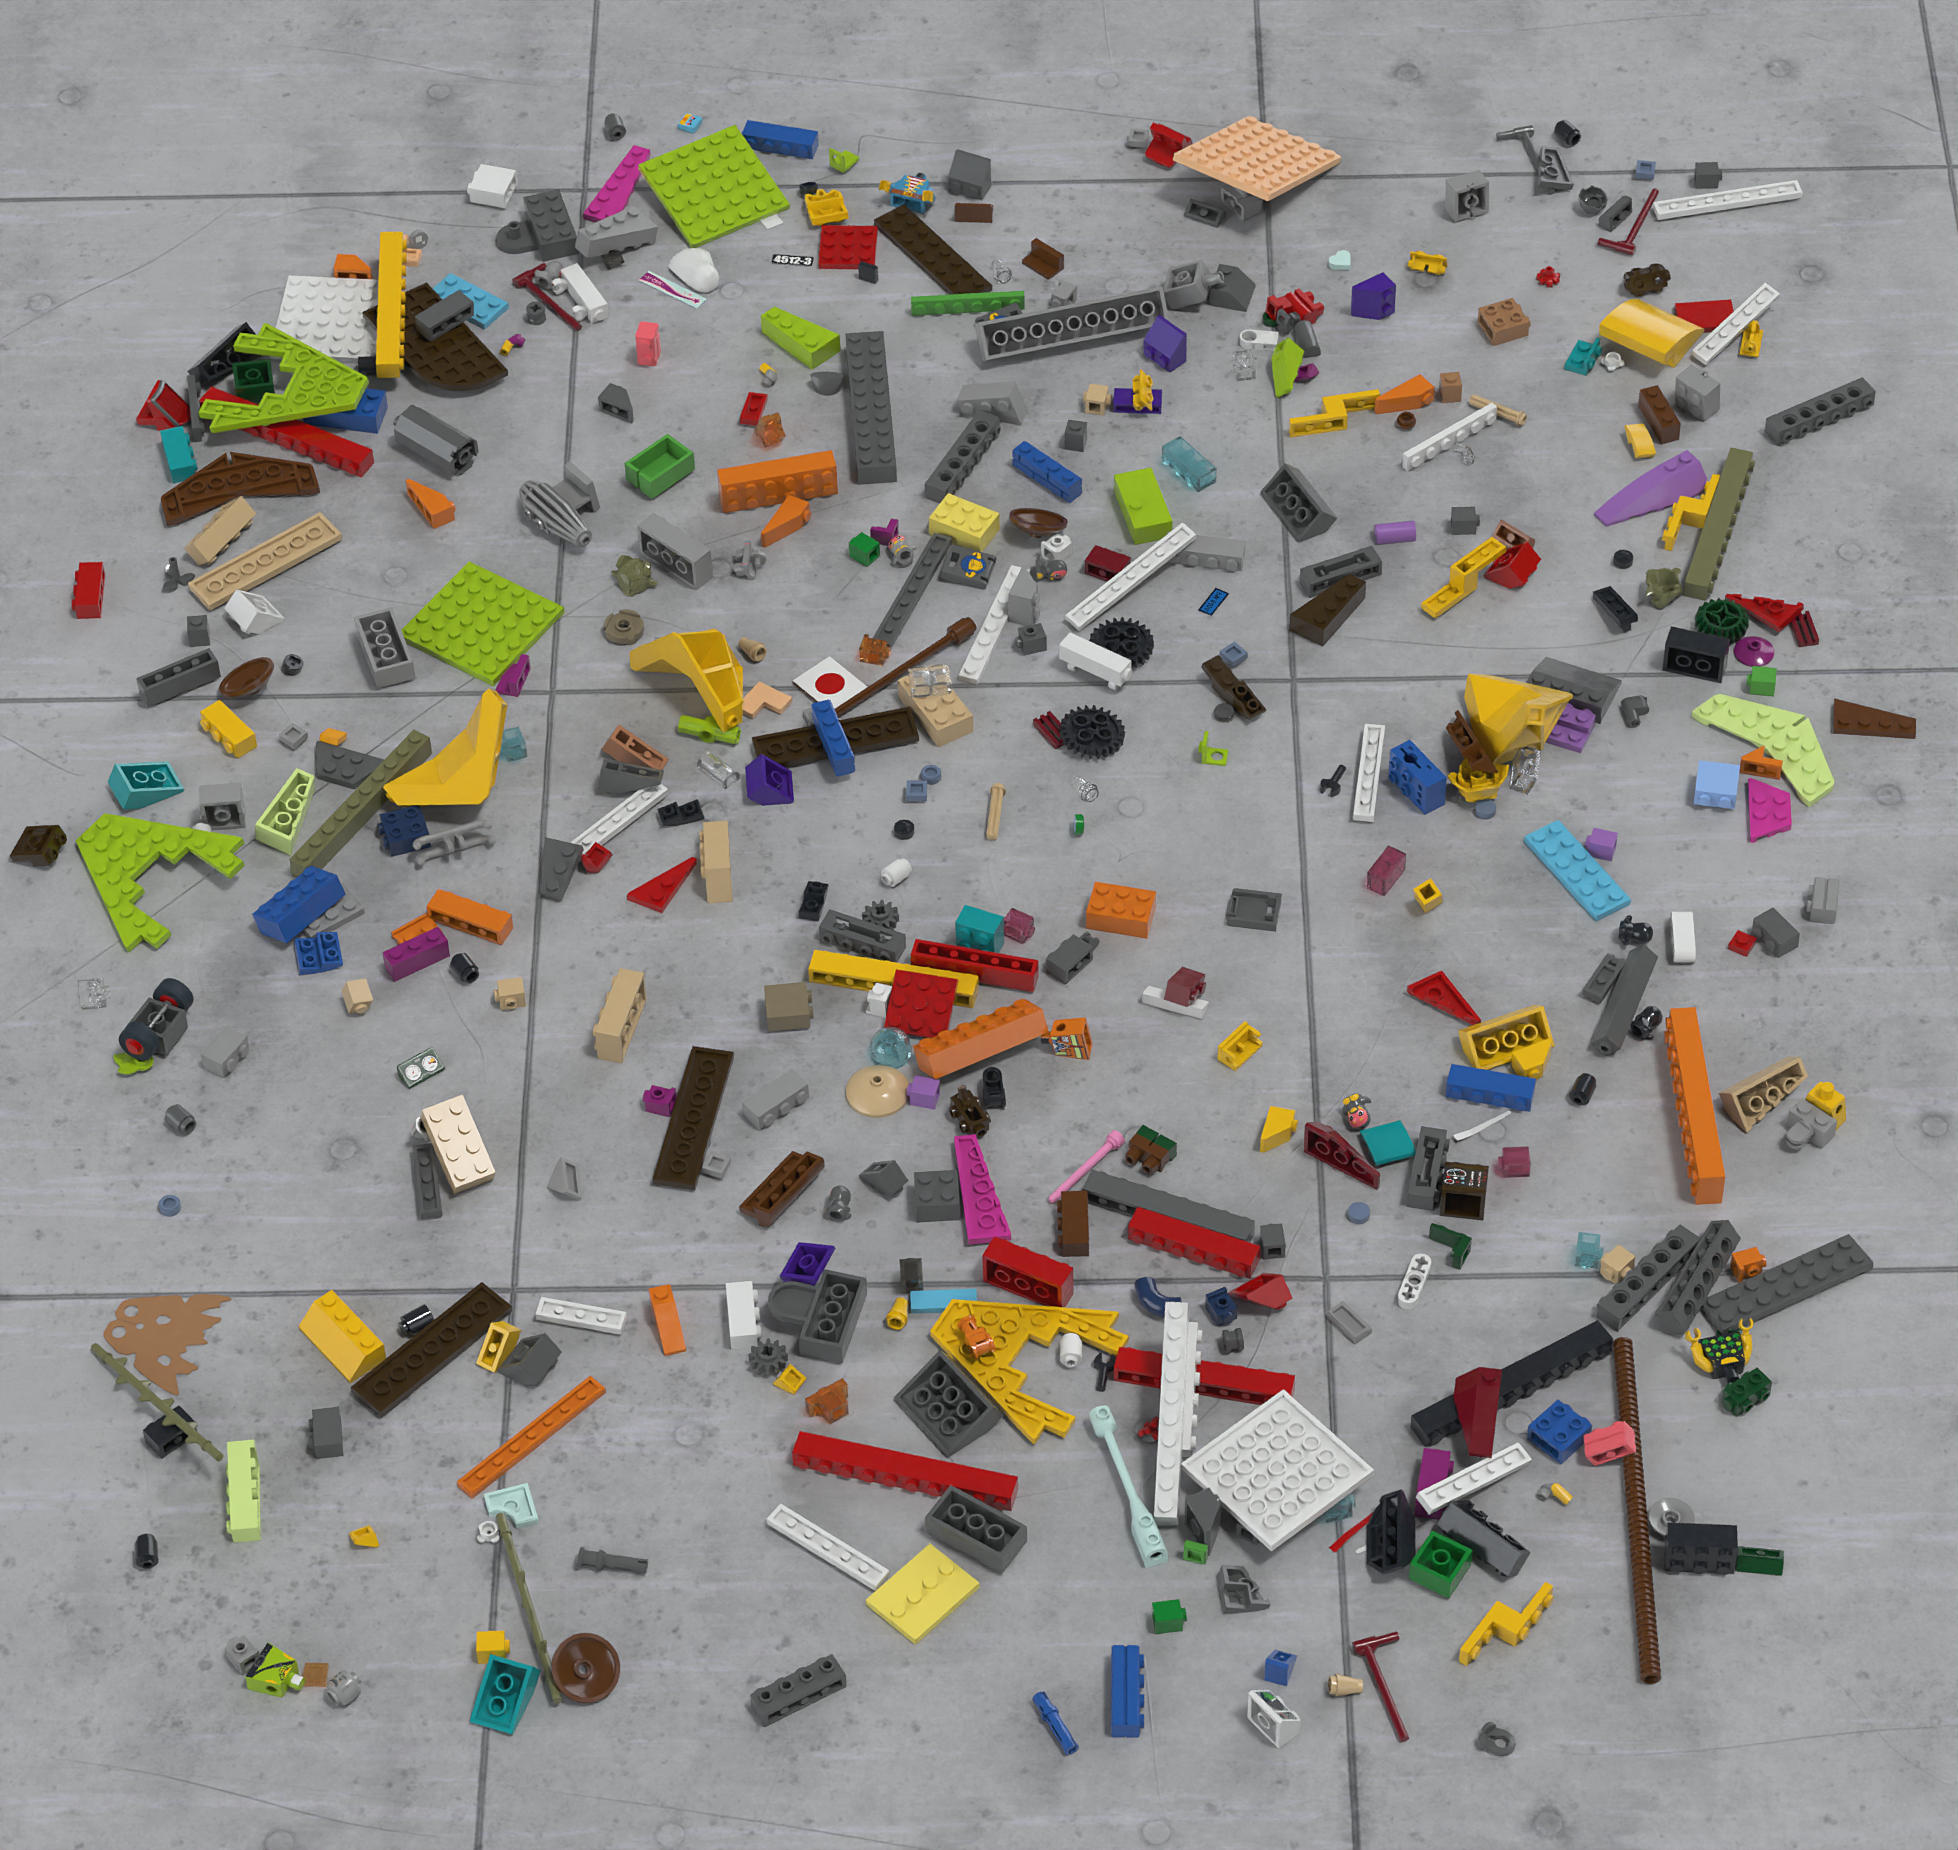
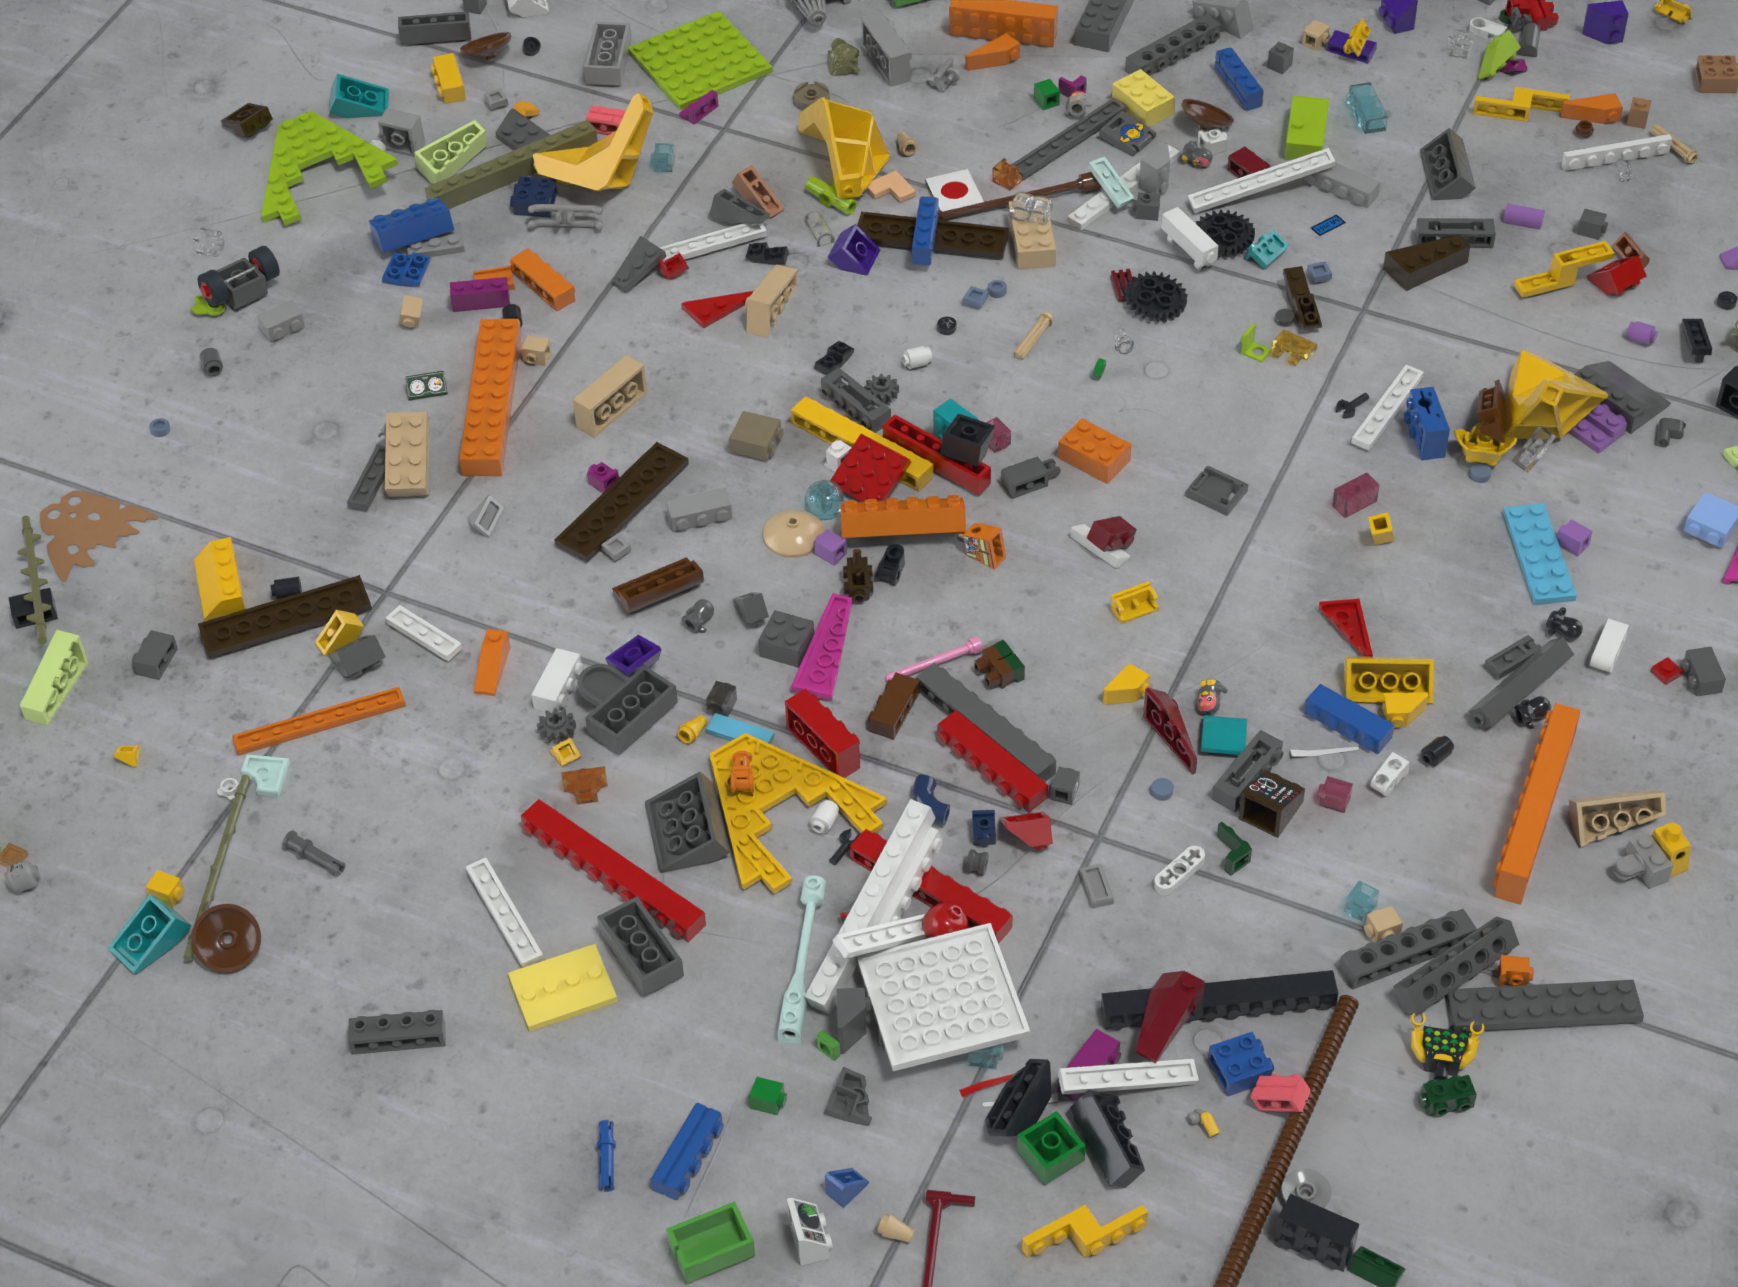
camera: 25 degrees right, 0 degrees up
(430, 721) = (605, 119): none -> coral brick
(497, 1057) = (490, 398): none -> orange brick
(986, 626) = (1111, 182): none -> light aqua plate
(1006, 941) = (967, 439): none -> black slope
(1171, 646) = (1268, 248): none -> teal bracket
(1195, 1757) = (710, 1242): none -> bright green piece
(1201, 1433) = (880, 937): none -> white plate
(1238, 1402) = (944, 919): none -> red cylinder
(1250, 738) = (1295, 345): none -> clear yellow plate
(1553, 1126) = (1390, 774): none -> white leg
(1563, 618) = (1642, 332): none -> medium lavender brick

